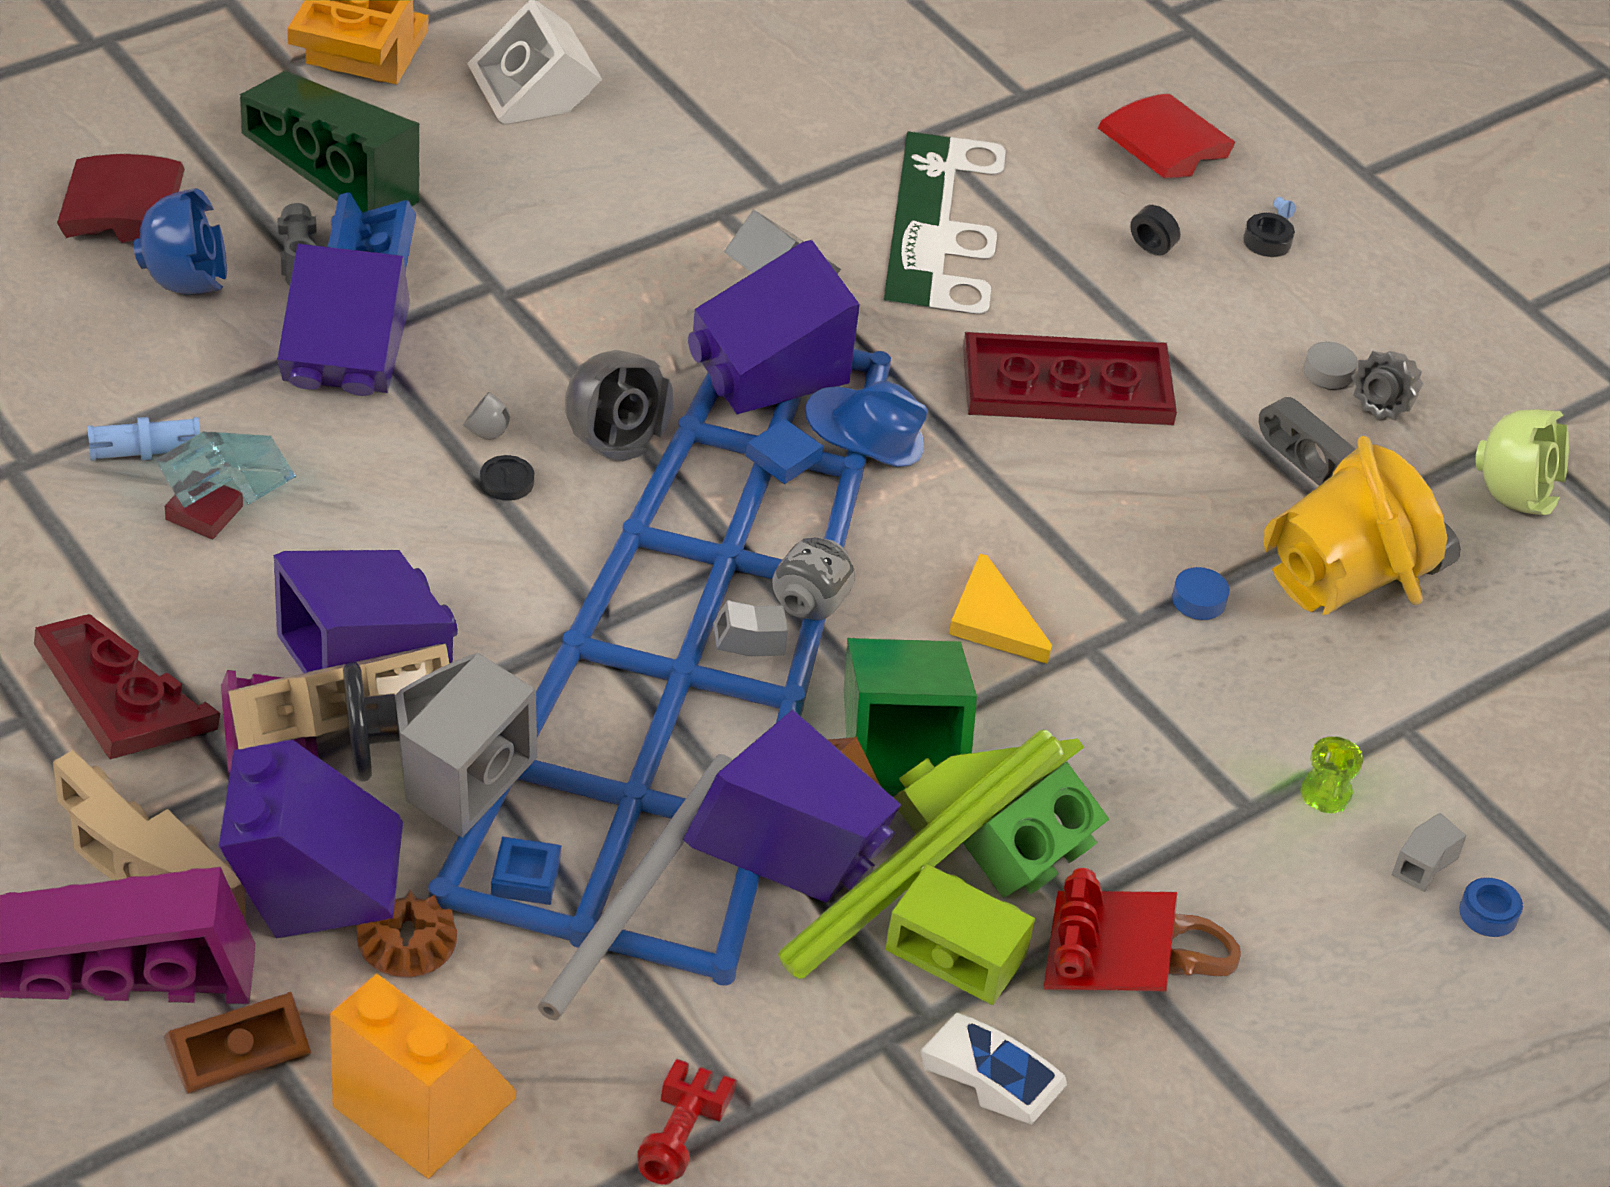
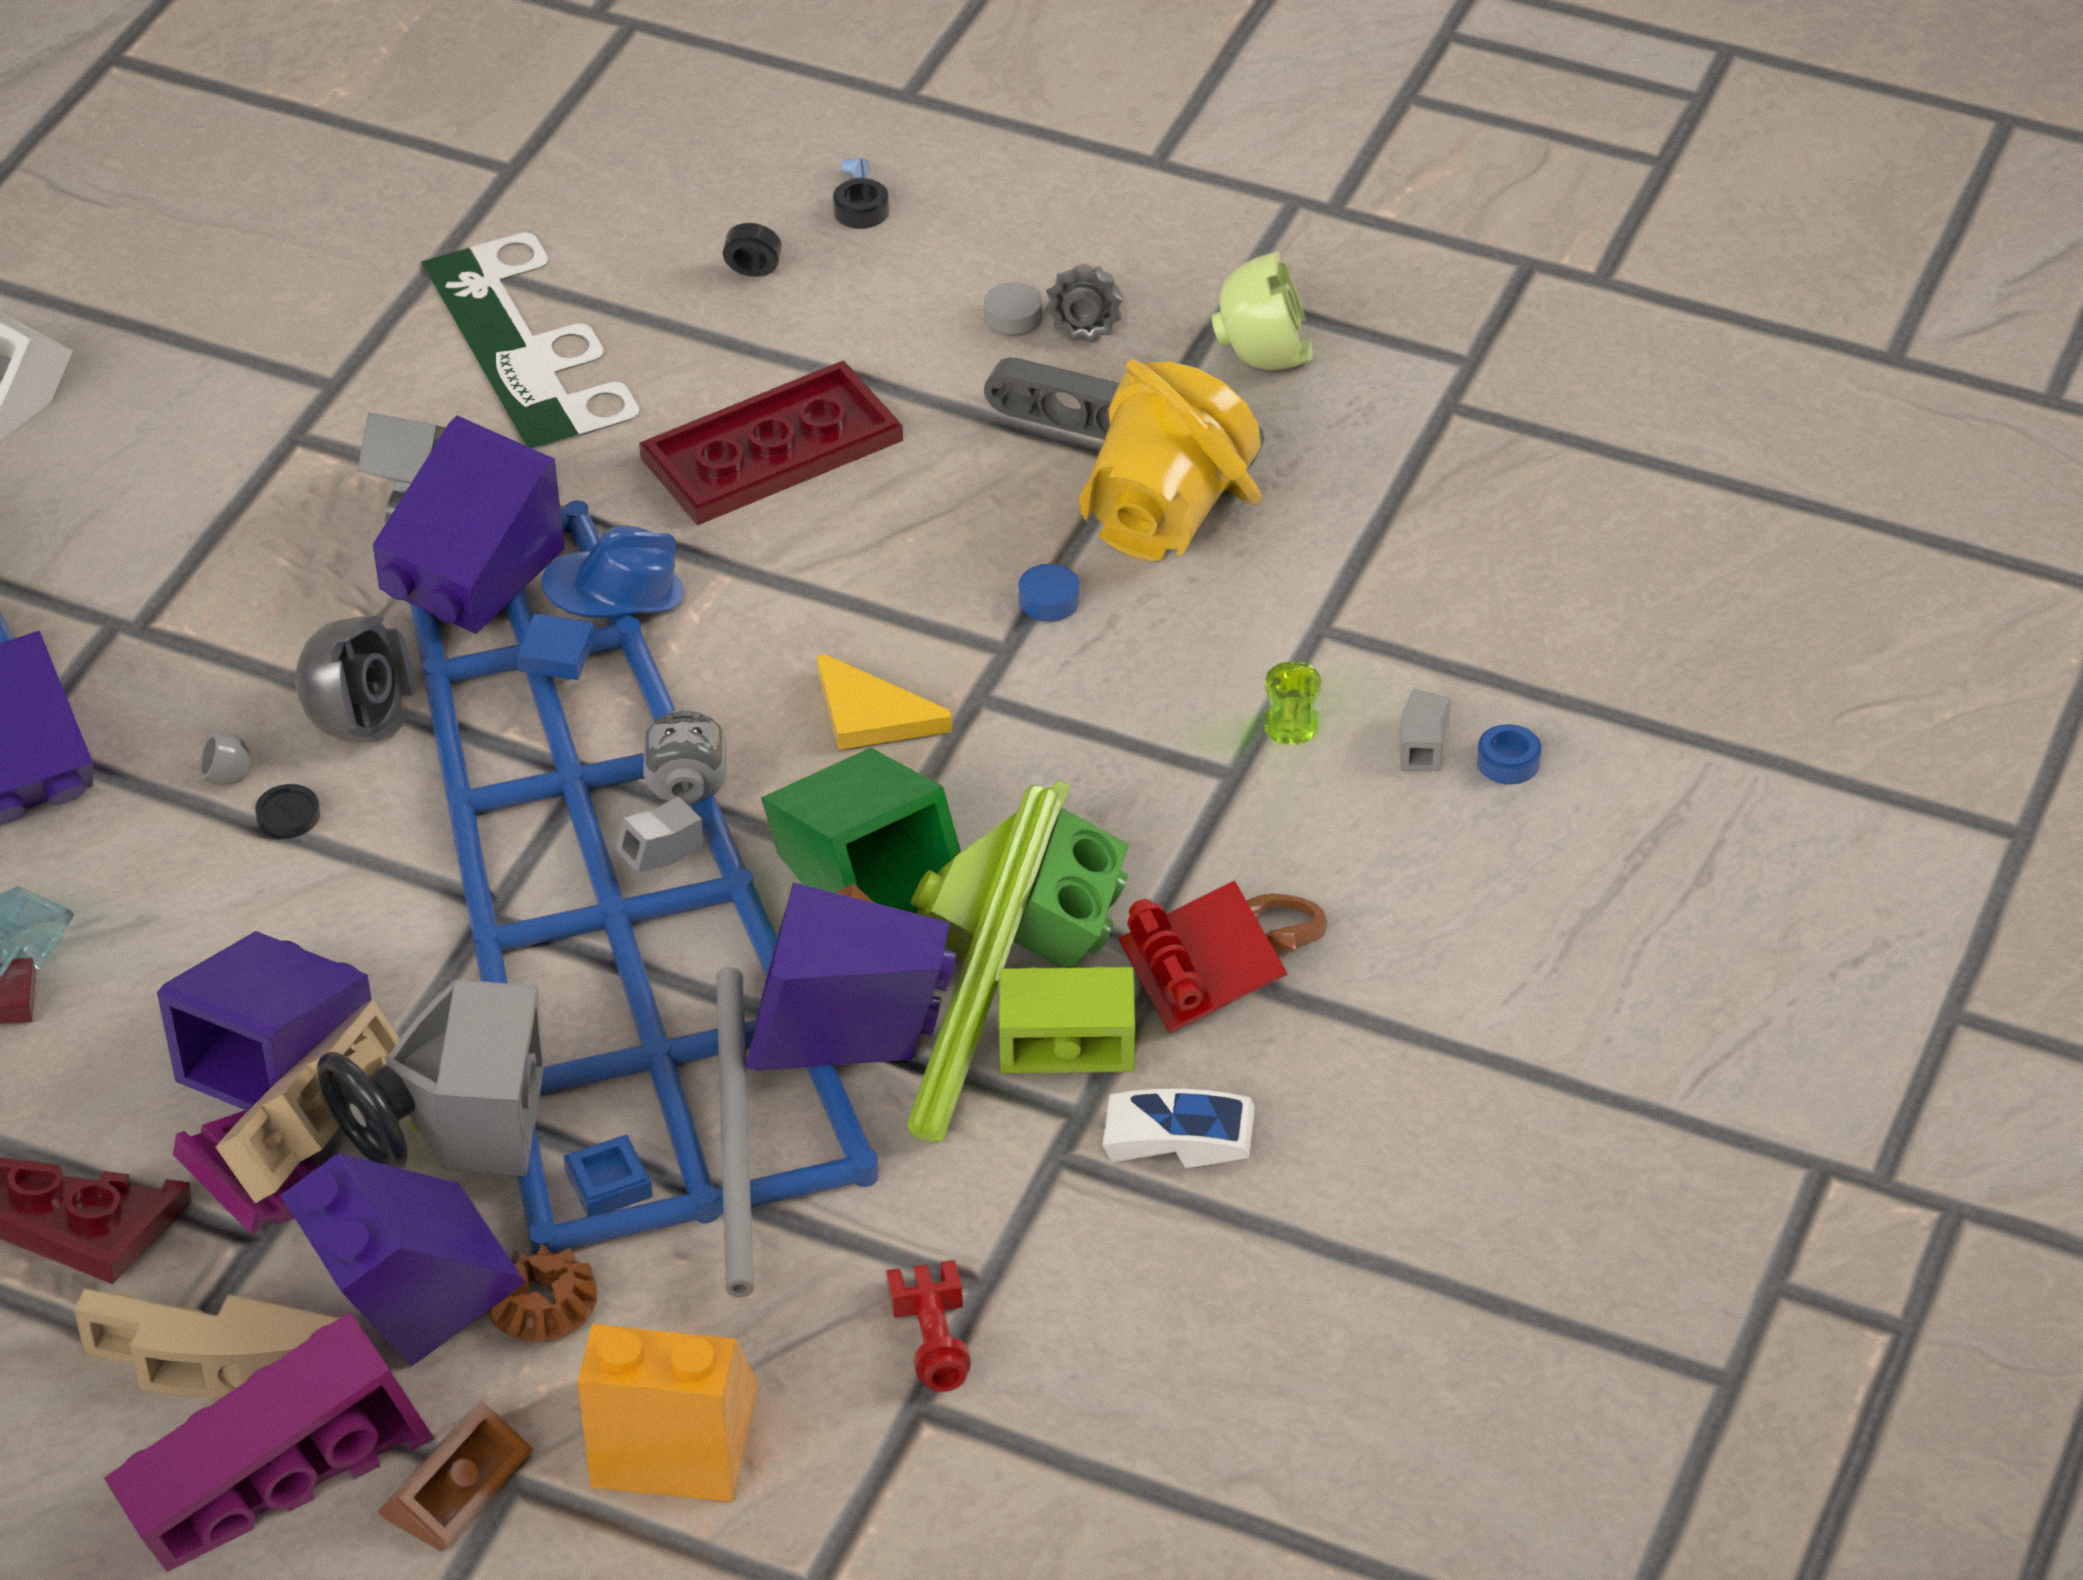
camera: 25 degrees left, 0 degrees up
(1166, 135) = (690, 145): red slope -> none

